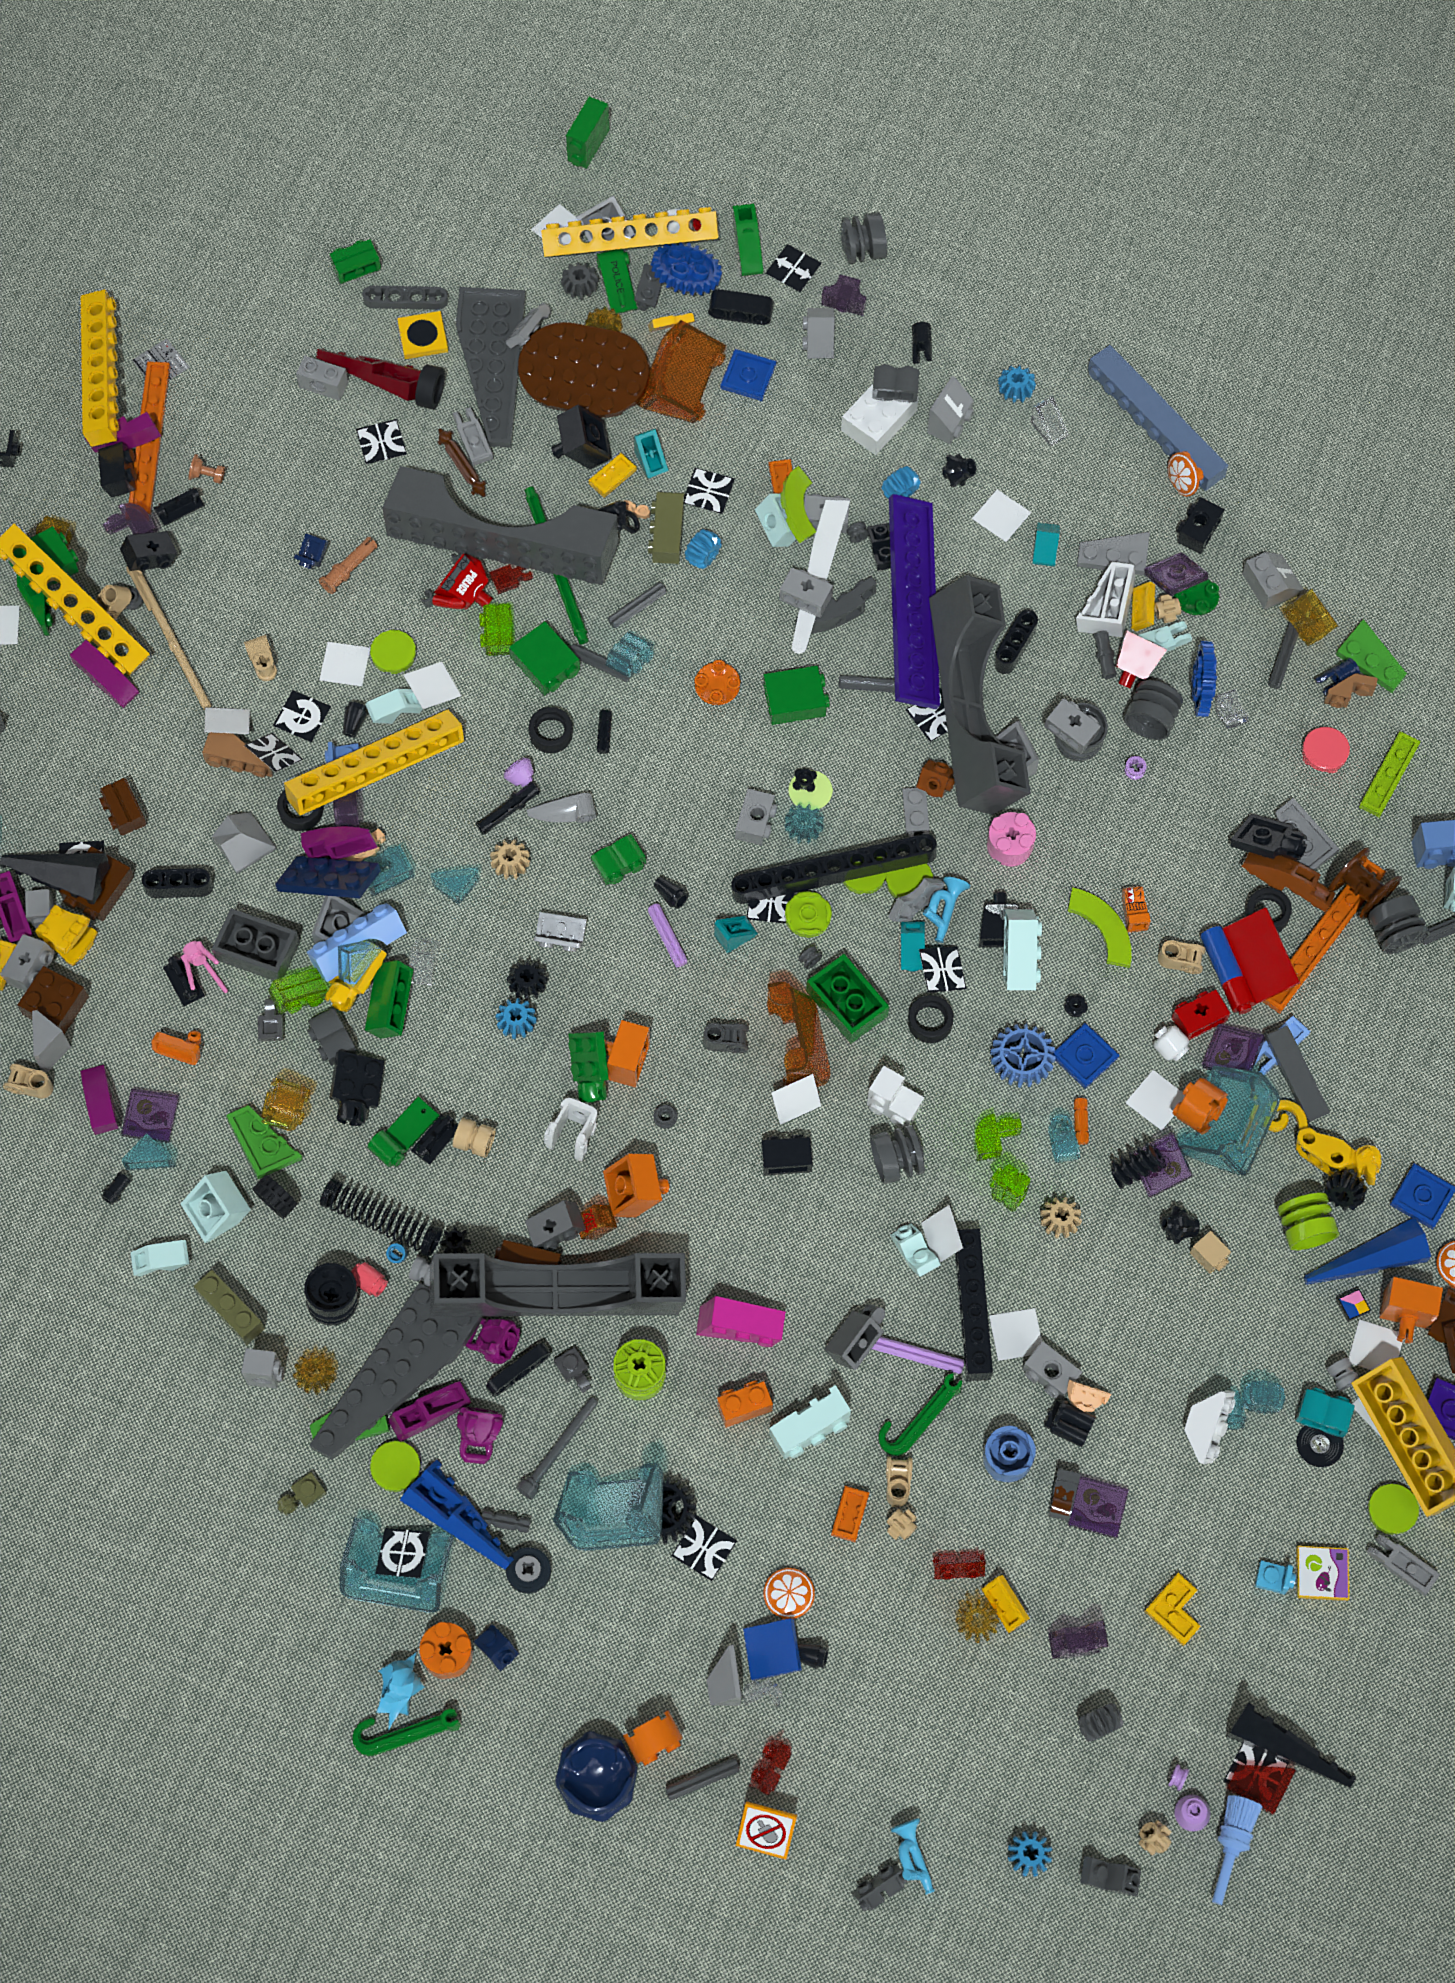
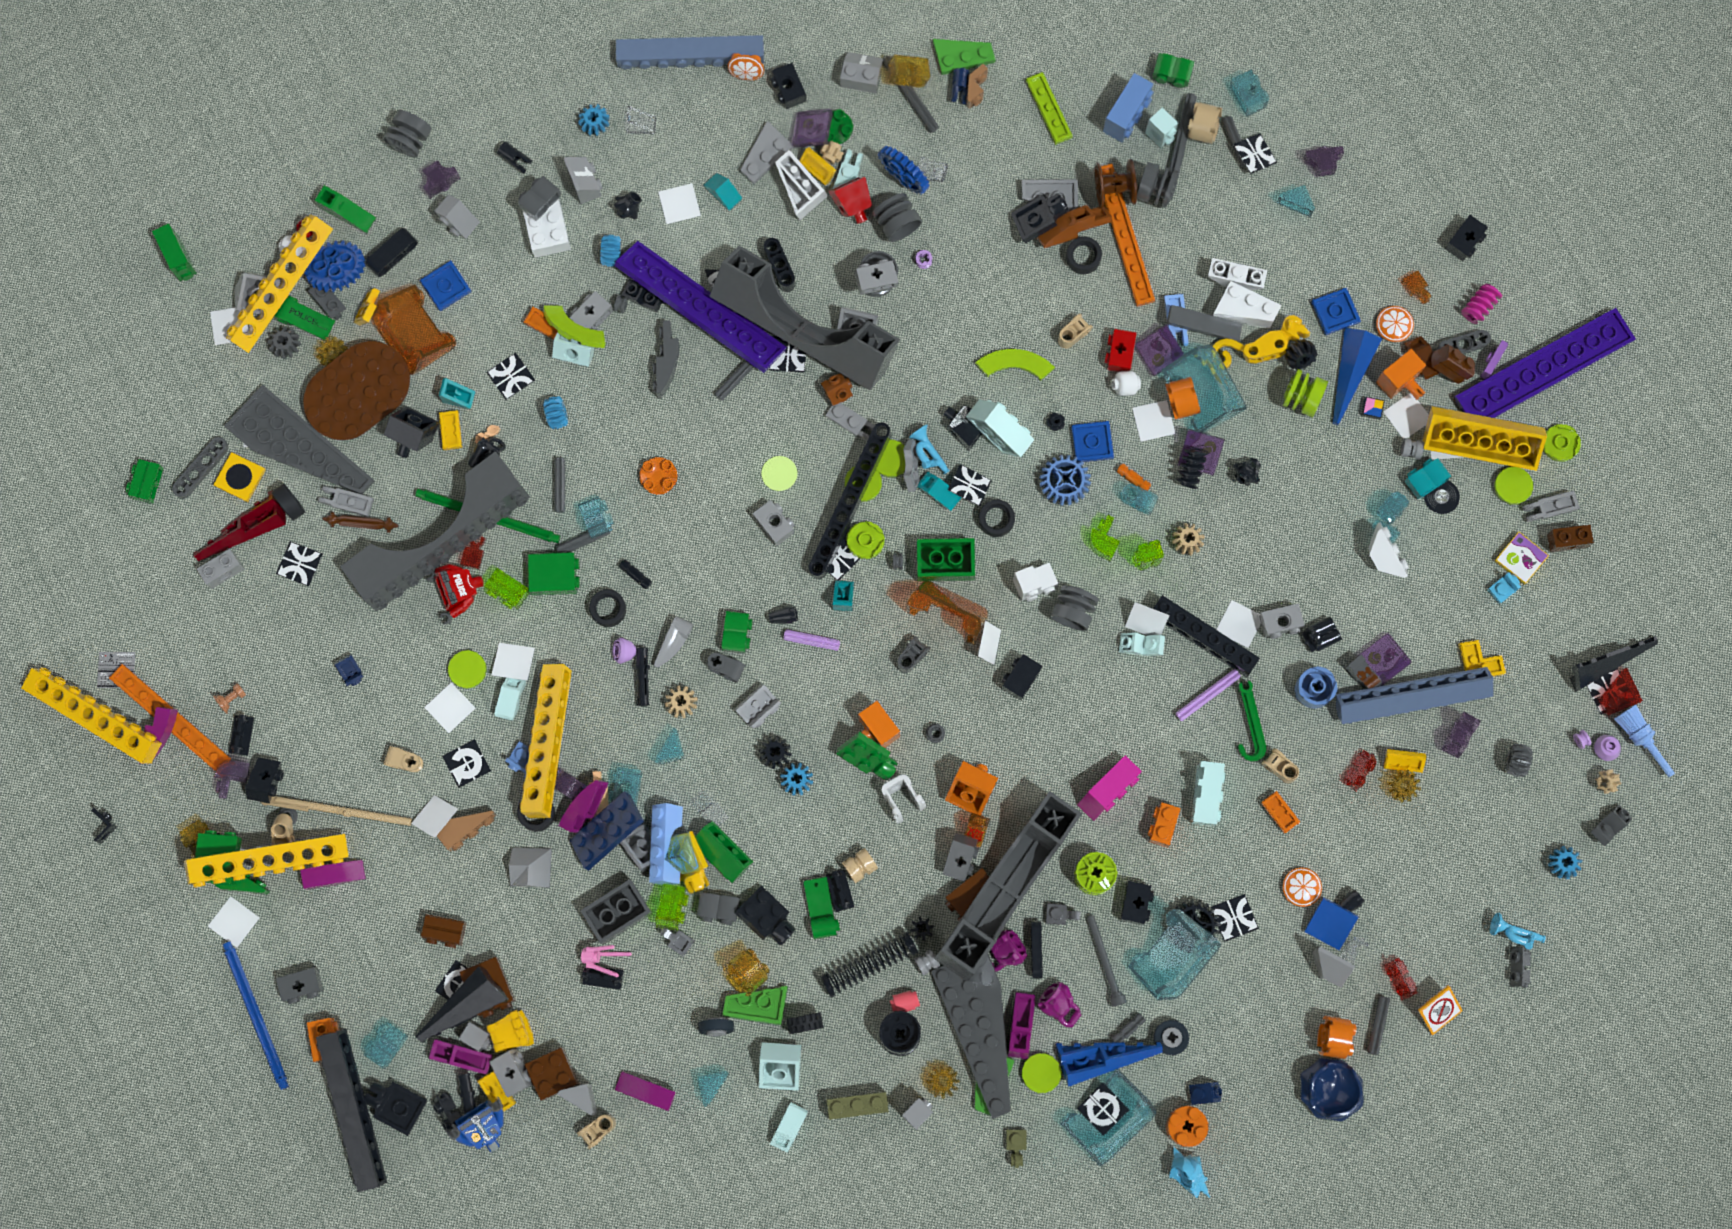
camera: 50 degrees left, 10 degrees up
(115, 1188) = (717, 1123): black pin -> none
(117, 469) = (181, 757): black brick -> none
(150, 1114) = (682, 1065): clear purple tile -> none
(167, 877) = (519, 937): black beam -> none
(178, 1049) = (653, 1012): orange piece -> none
(209, 1116) = (716, 1026): none -> black wheel
(273, 752) = (482, 801): sticker -> none
(341, 571) = (380, 661): nougat pin -> none
(353, 718) = (498, 731): black cone -> none
(393, 1257) = (903, 974): dark azure hinge -> none
(403, 1736) = (1219, 1193): green piece -> none
(528, 325) = (293, 403): light grey hinge -> none
(577, 876) = (729, 668): none -> dark grey piece
(649, 1424) = (1132, 893): none -> black brick
(666, 528) = (519, 424): olive brick -> none
(793, 268) = (387, 195): black sticker -> none
(795, 695) = (707, 432): green brick -> none
(804, 831) = (795, 497): clear light blue gear -> none
(806, 592) = (640, 379): light grey brick -> none
(807, 774) = (771, 467): black plate -> none
(820, 562) = (631, 350): white sticker -> none
(856, 1337) = (1173, 723): dark grey brick -> none
(901, 1524) = (1311, 786): tan gear -> none
(1007, 827) = (919, 383): bright pink brick -> none
(1082, 1562) = (1414, 695): none -> sand blue brick
(1085, 1396) = (1314, 612): light nougat tile -> none
(1105, 655) = (832, 216): dark grey pin -> none
(1135, 909) = (1019, 334): orange leg -> none
(1211, 1253) = (1278, 466): tan brick -> none
(1250, 960) = (1109, 292): red door -> none
(1325, 749) = (1003, 133): coral tile -> none
(1349, 1102) = (1246, 307): none -> white wedge
(1373, 1067) = (1243, 275): none -> white slope
(1385, 1607) = (1570, 538): none -> reddish brown brick

